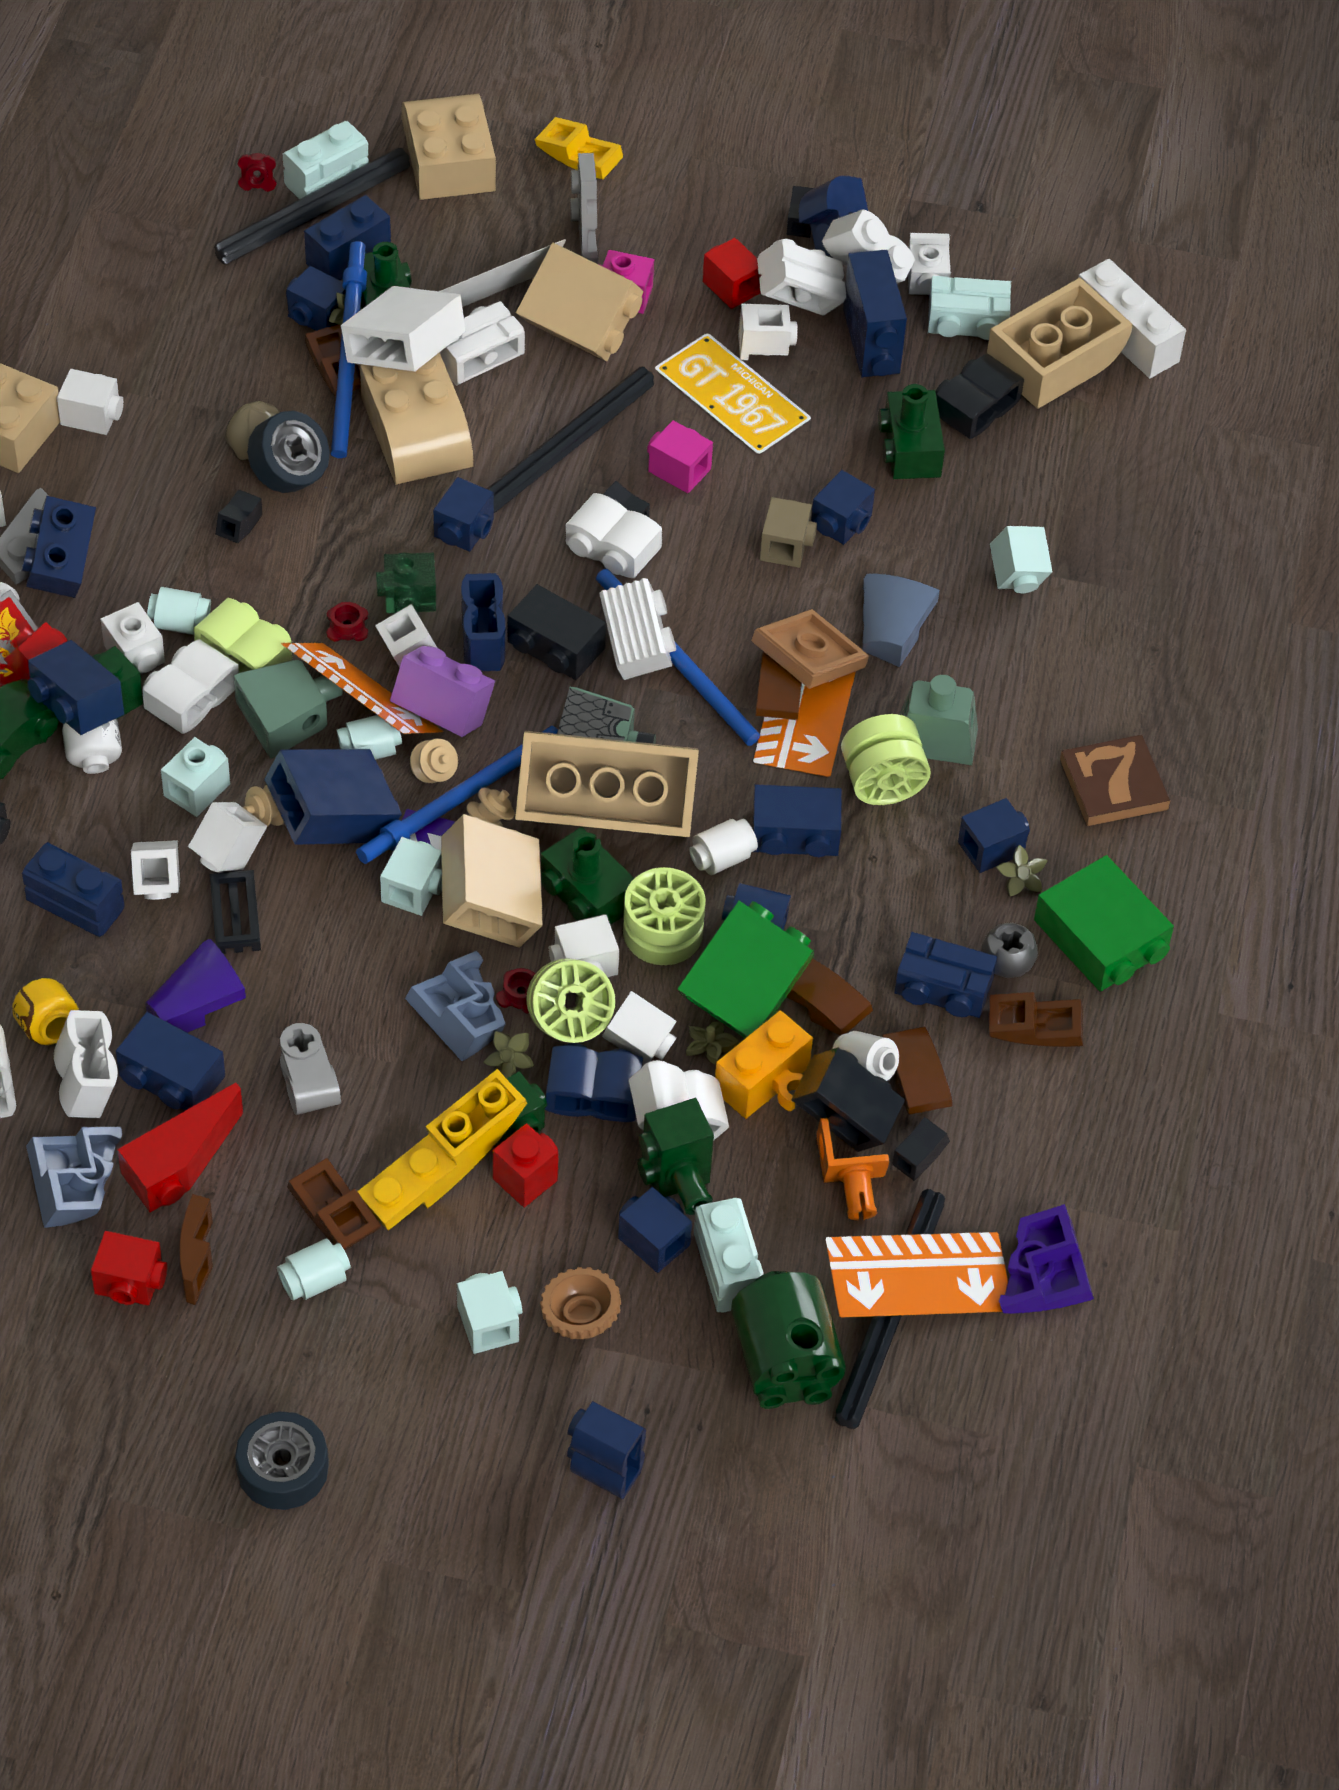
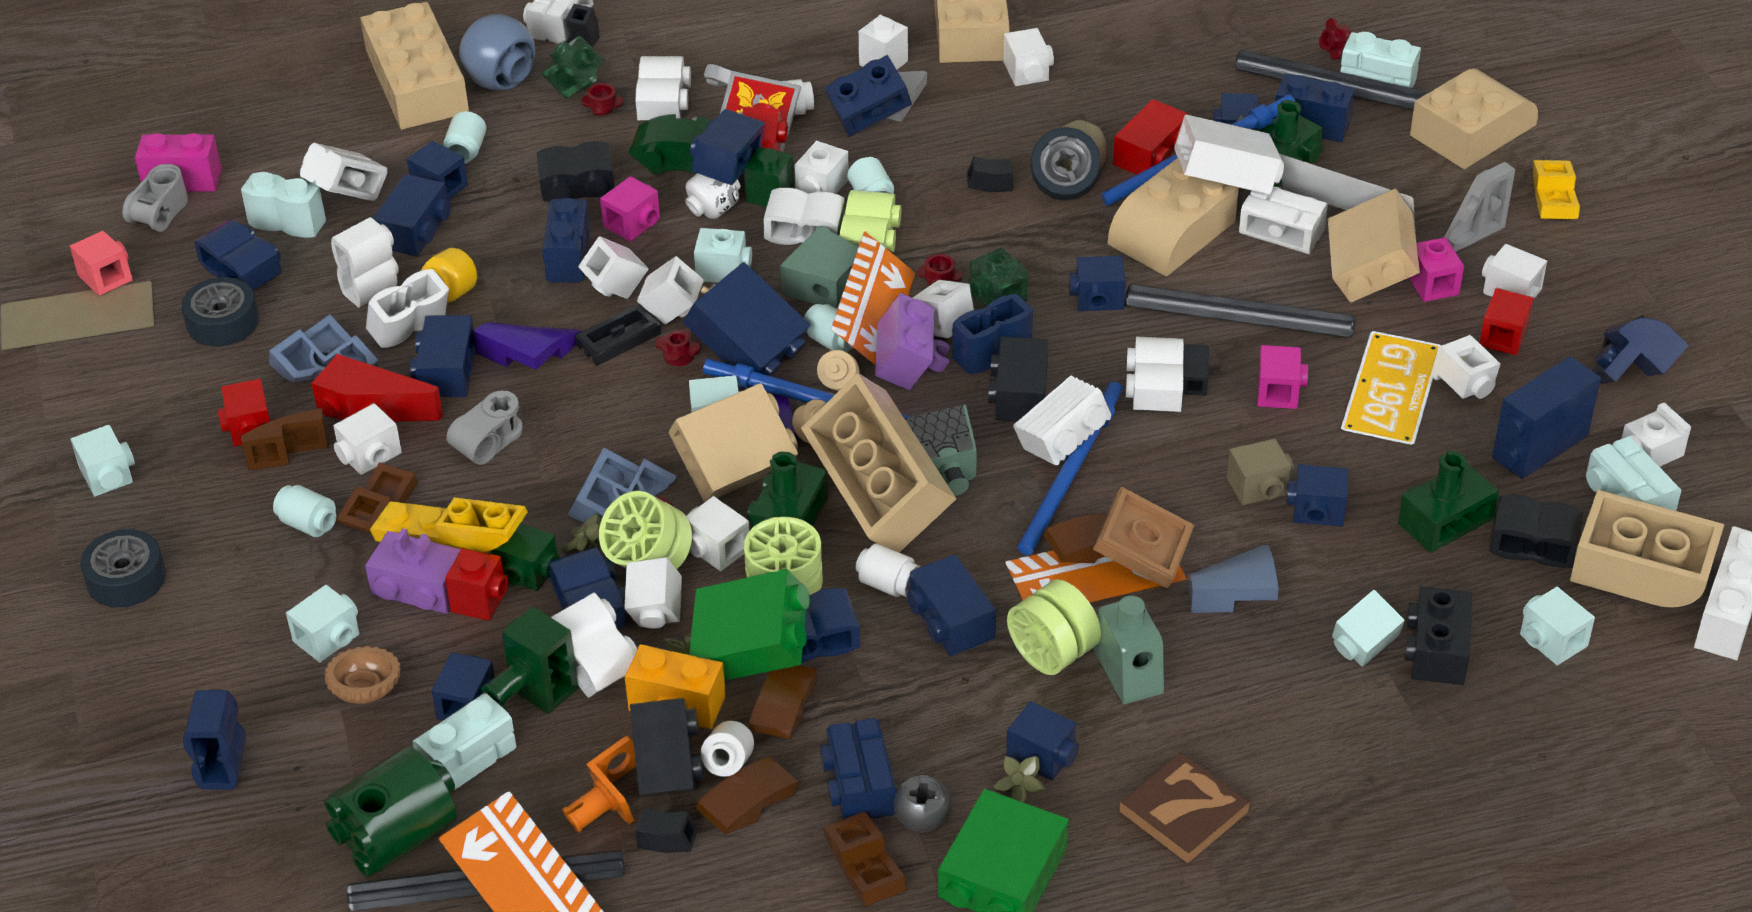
camera: 65 degrees right, 10 degrees down
(63, 815) = (630, 208): none -> dark pink brick
(106, 1425) = (103, 460): none -> light aqua brick
(249, 1178) = (366, 439): none -> white brick
(293, 373) = (1147, 137): none -> red brick
(298, 880) = (678, 347): none -> dark red plate
(471, 1208) = (411, 570): none -> medium lavender brick
(675, 237) = (1514, 272): none -> white brick
(801, 277) = (1531, 346): white brick -> none
(863, 233) = (1616, 395): white brick -> none
(1067, 519) = (1440, 635): none -> black brick
(1087, 442) = (1556, 625): none -> light aqua brick

